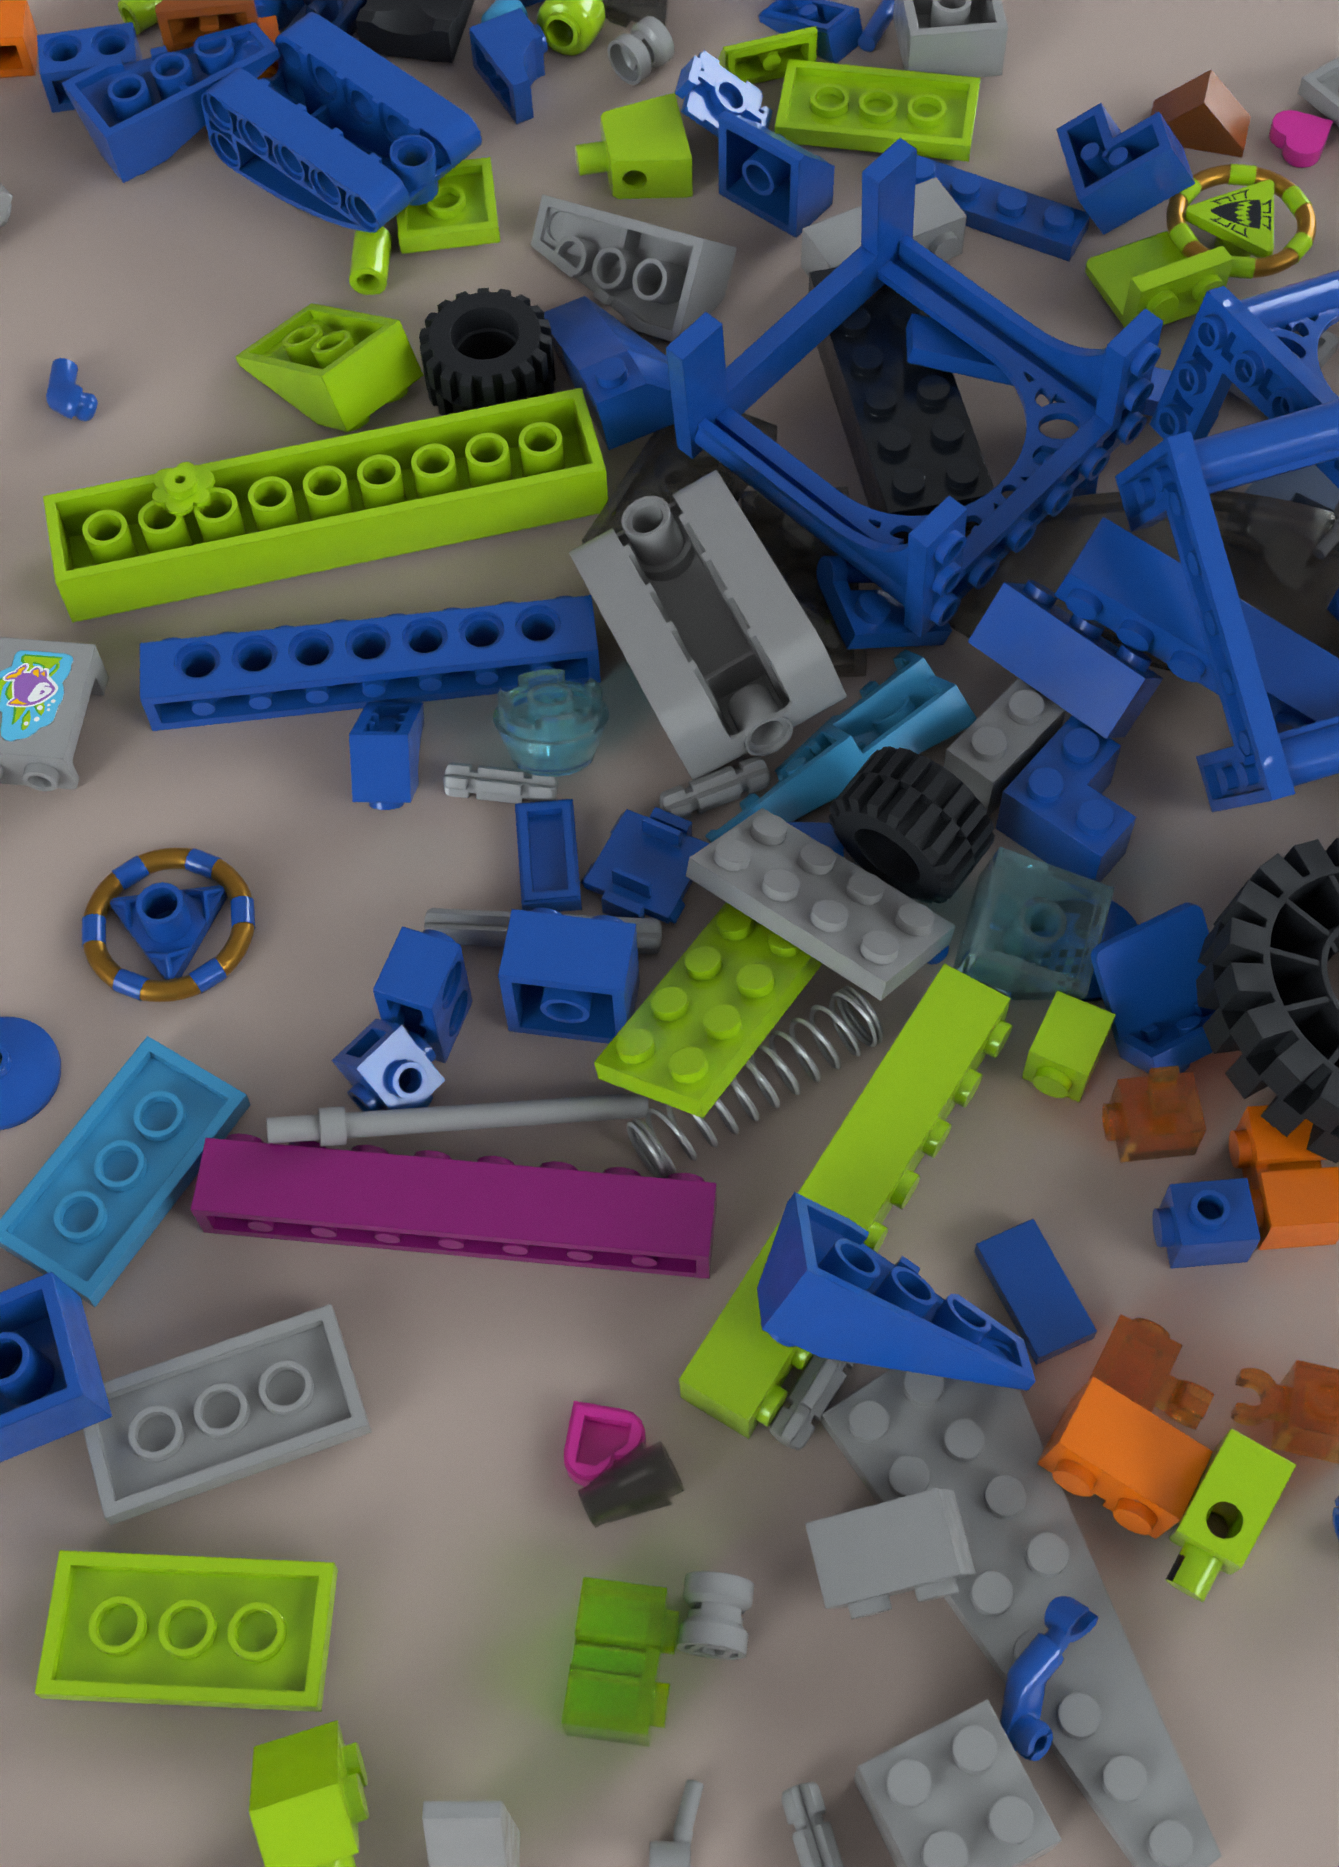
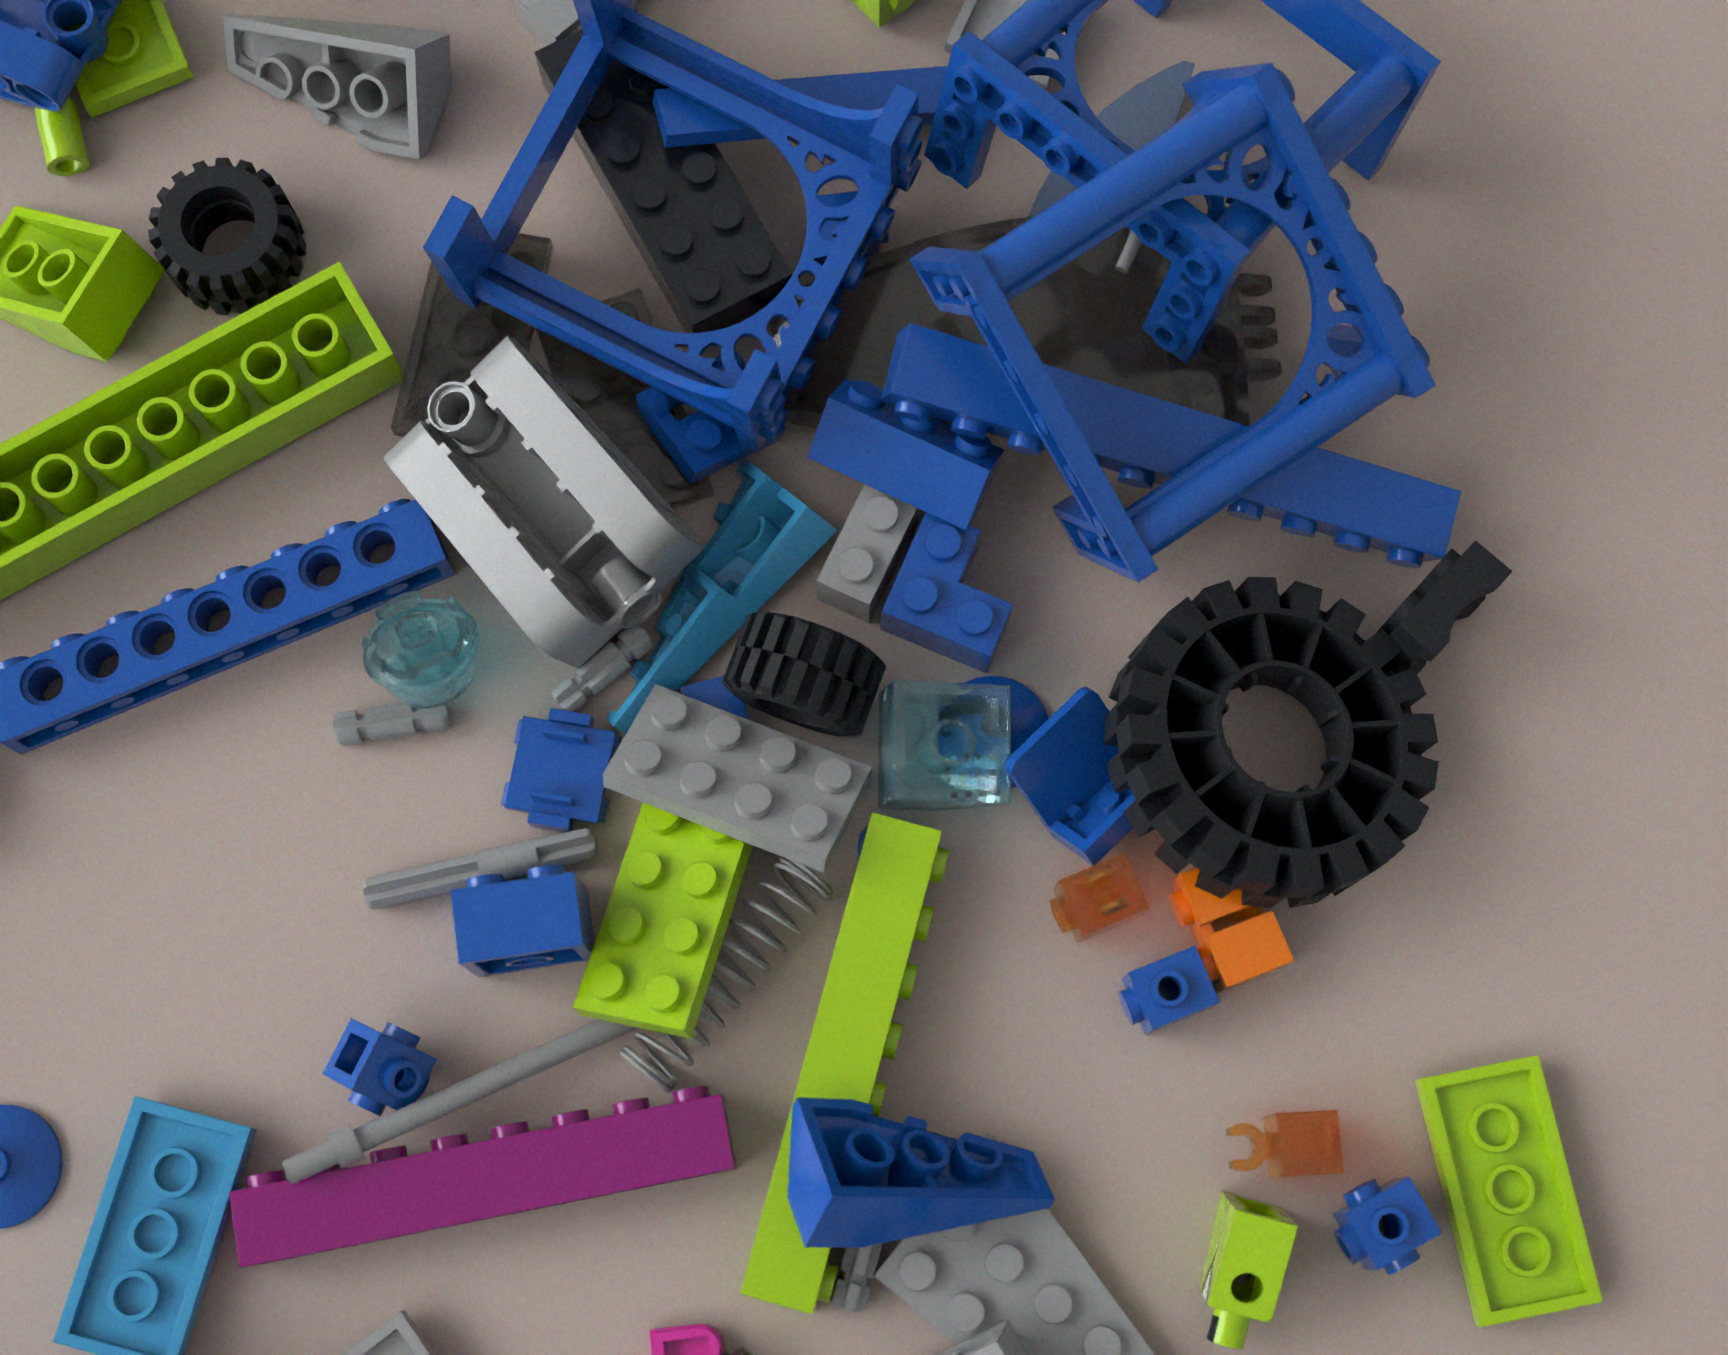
camera: 20 degrees left, 15 degrees up
(169, 924) = (112, 965): blue piece -> none
(386, 753) = (267, 722): blue arch -> none
(425, 988) = (389, 980): blue brick -> none
(548, 855) = (461, 785): blue tile -> none
(616, 368) = (361, 210): blue wedge -> none
(1035, 1291) = (1031, 1097): blue tile -> none
(1067, 1047) = (1004, 852): lime brick -> none
(1126, 1458) = (1147, 1241): orange piece -> none
(1139, 1366) = (1138, 1155): clear orange brick -> none

